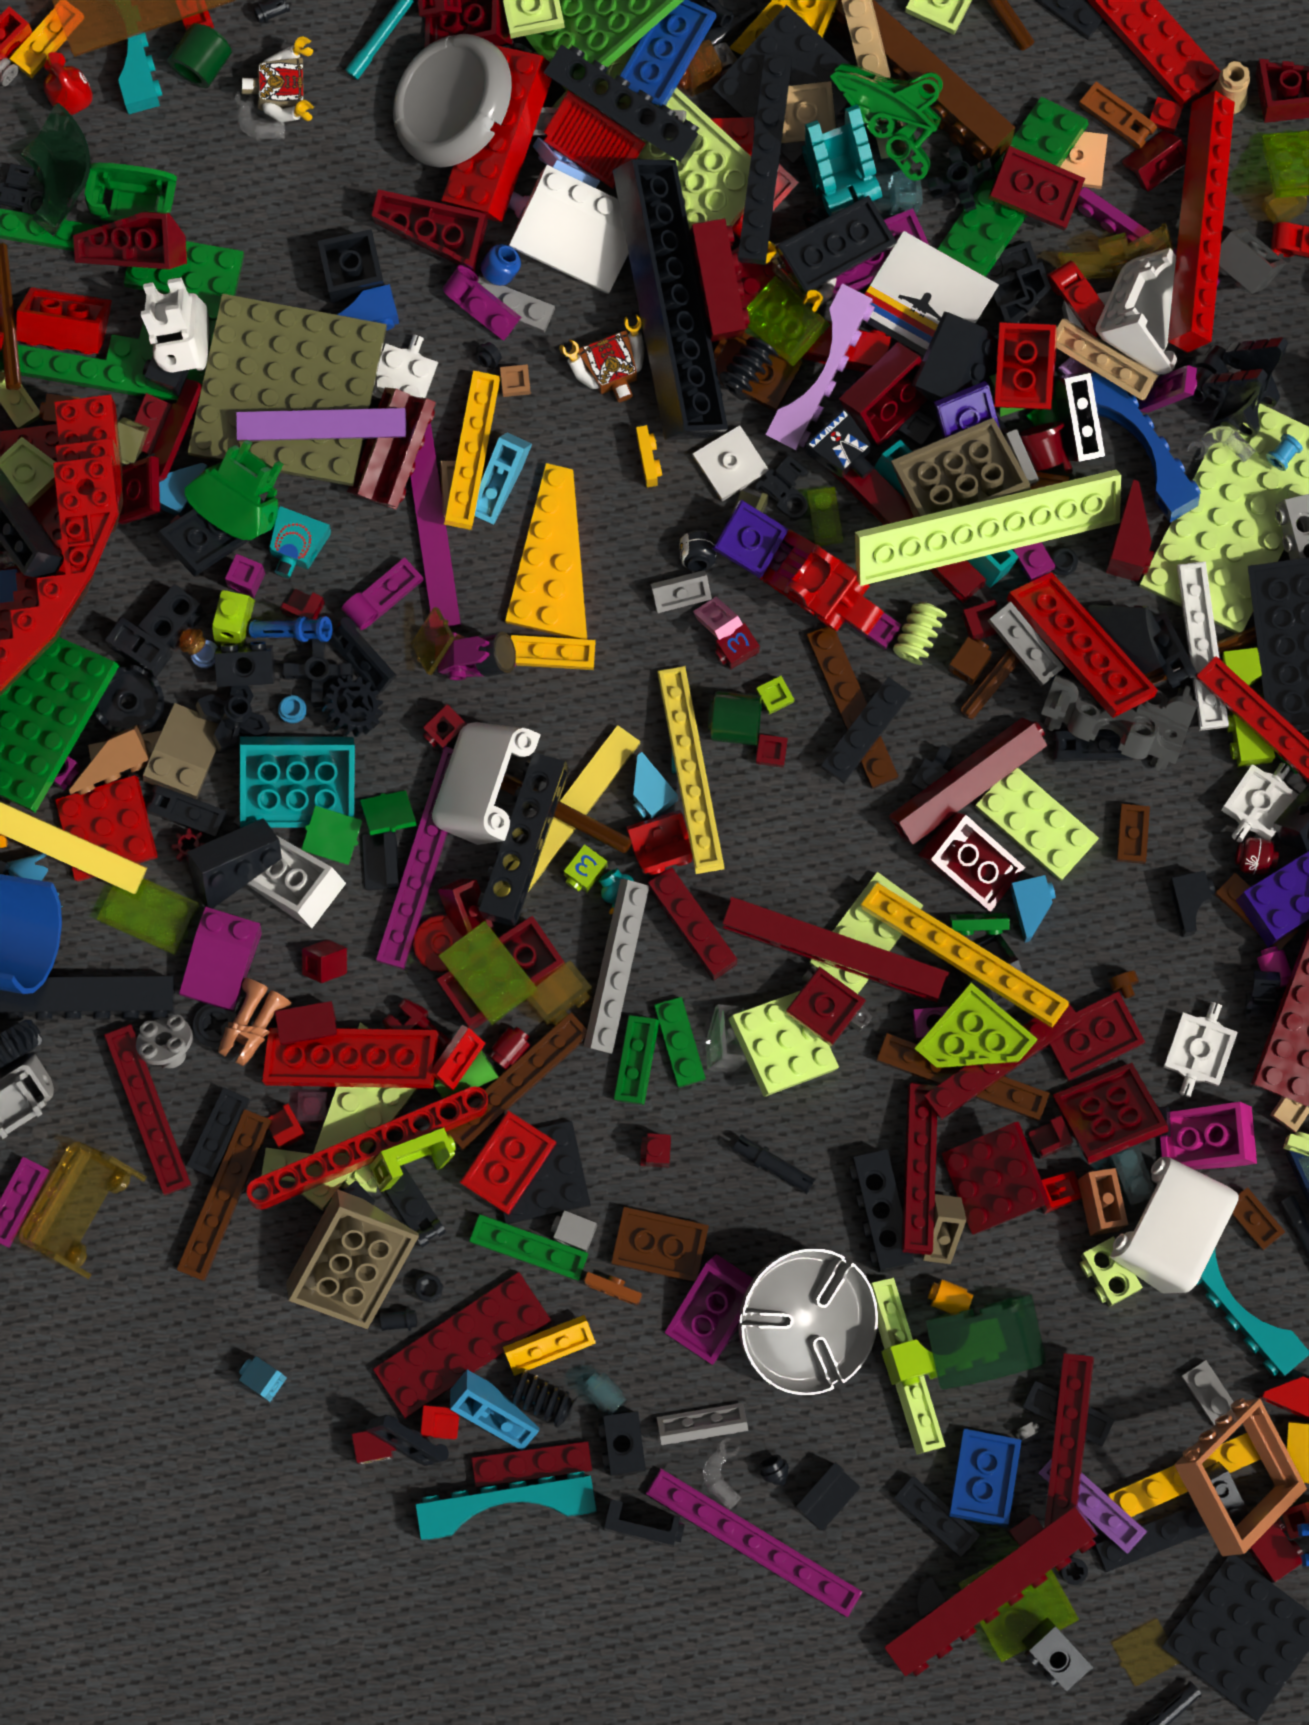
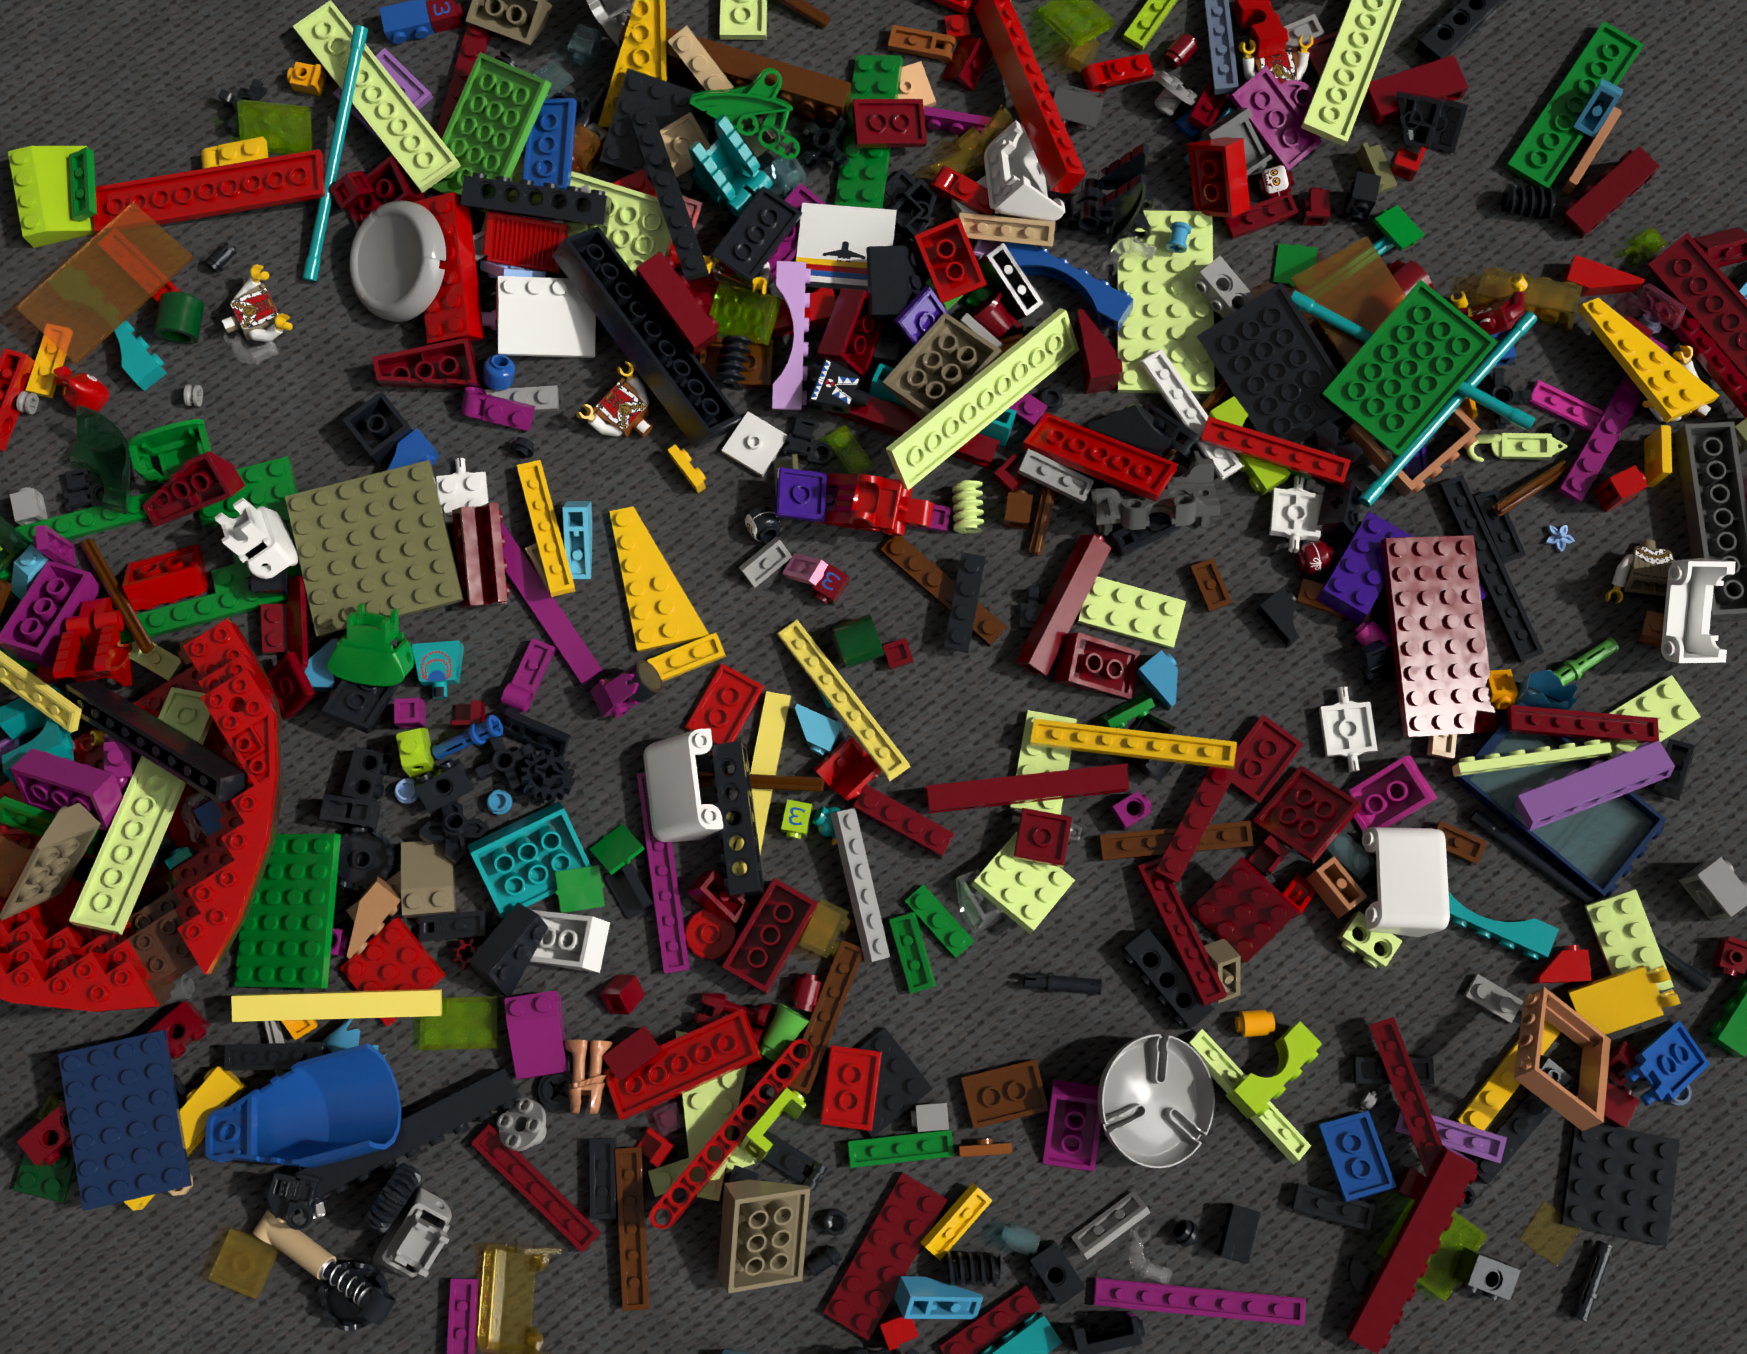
camera: 25 degrees left, 0 degrees up
(132, 439) = (265, 647): olive brick -> none
(176, 142) = (193, 395): none -> light grey bush
(192, 641) = (391, 786): clear orange plate -> none
(321, 424) = (414, 563): medium lavender tile -> none
(432, 640) = (587, 694): clear yellow piece -> none
(453, 720) = (636, 752): dark red brick -> none
(457, 1057) = (769, 1023): red plate -> none
(488, 973) = (761, 942): clear neon green plate -> none
(515, 380) = (553, 458): medium nougat plate -> none
(569, 719) = (725, 705): none -> red tile
(656, 1150) = (964, 1018): dark red brick -> none
(775, 695) = (879, 608): lime plate -> none
(975, 1034) = (1172, 802): lime plate -> none
(986, 1344) = (1305, 1048): clear green panel -> none
(1124, 983) = (1263, 704): reddish brown tile -> none
(1170, 389) = (1069, 227): magenta plate -> none

